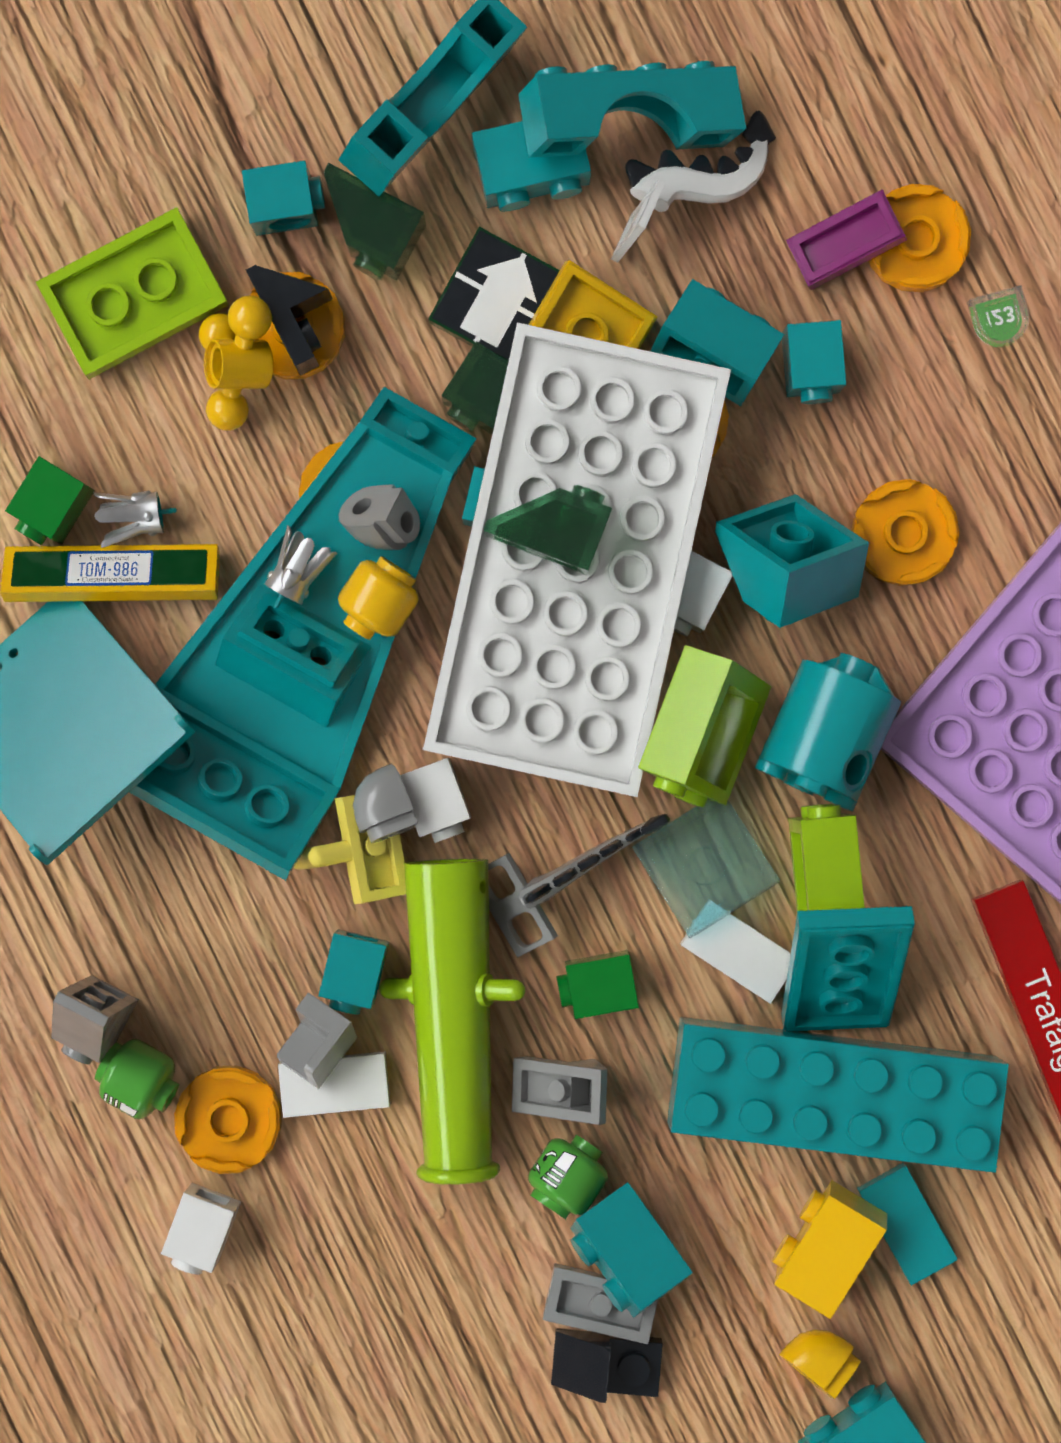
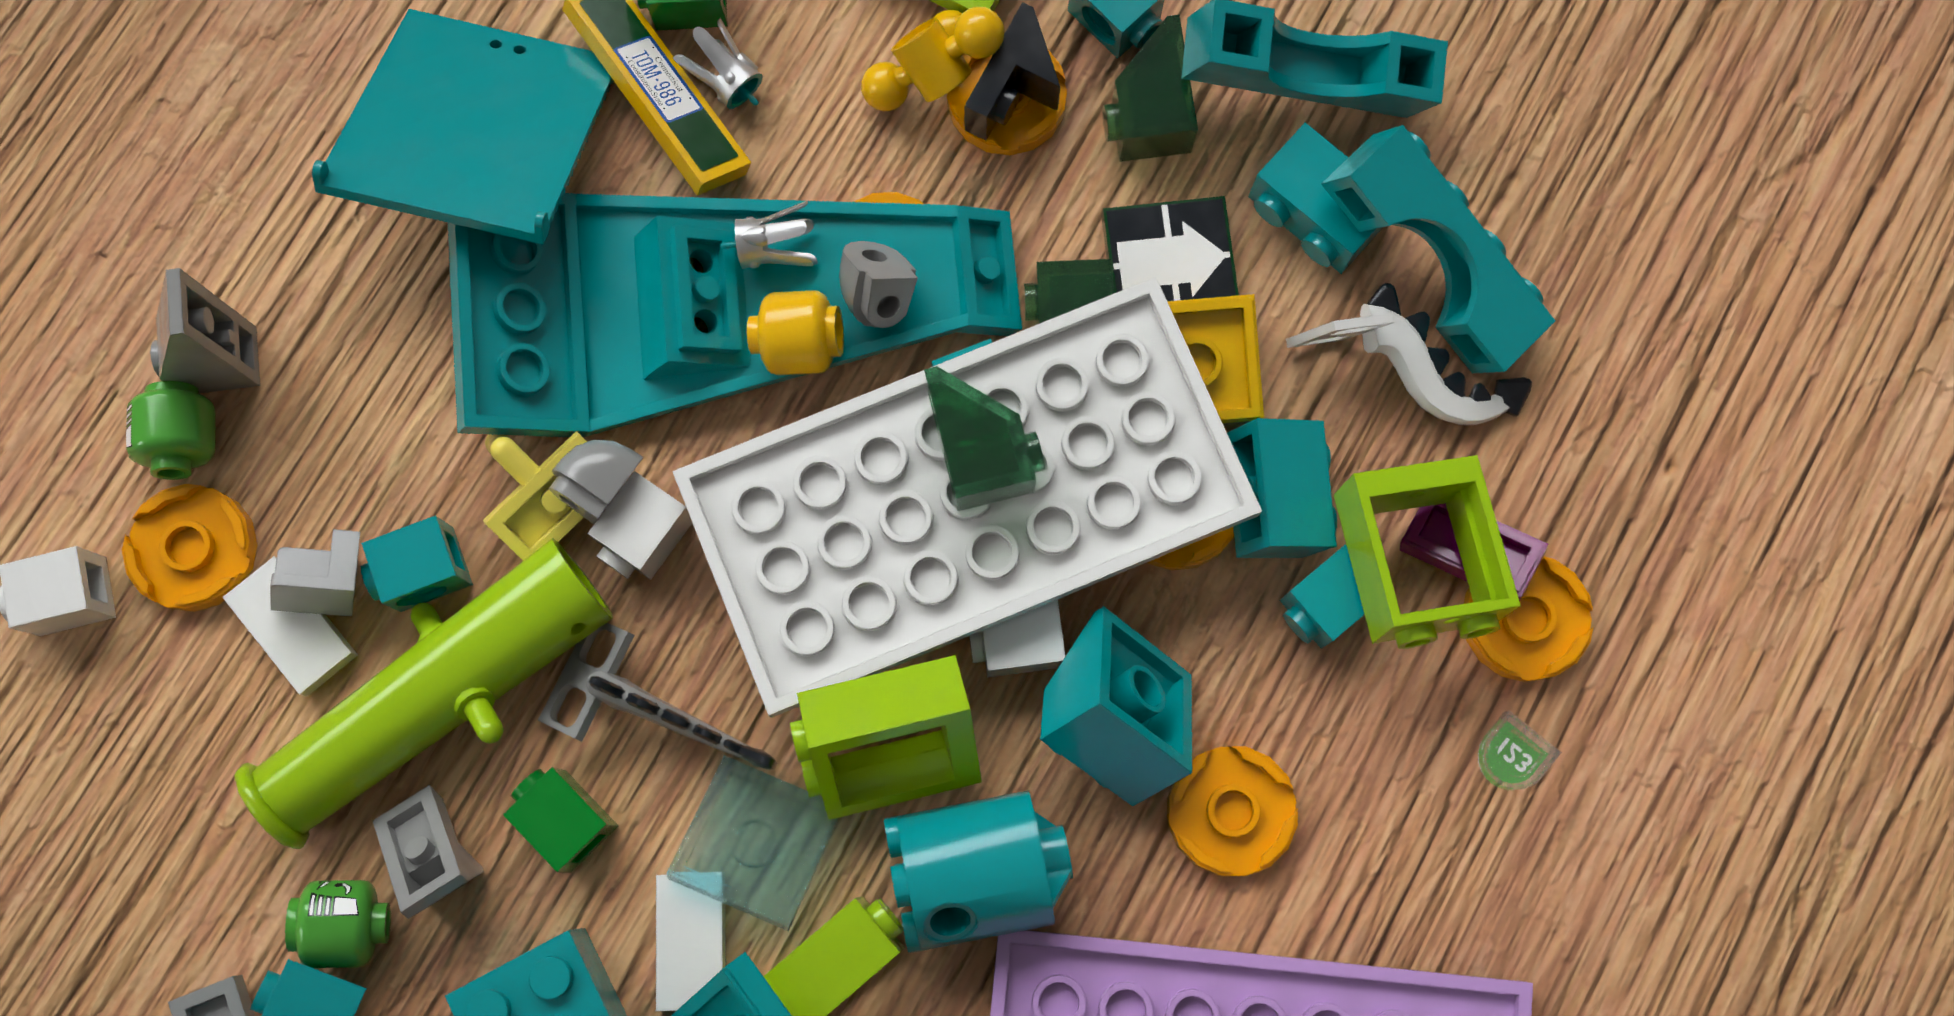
camera: 55 degrees right, 10 degrees down
(849, 237) = (1476, 531): none -> lime window

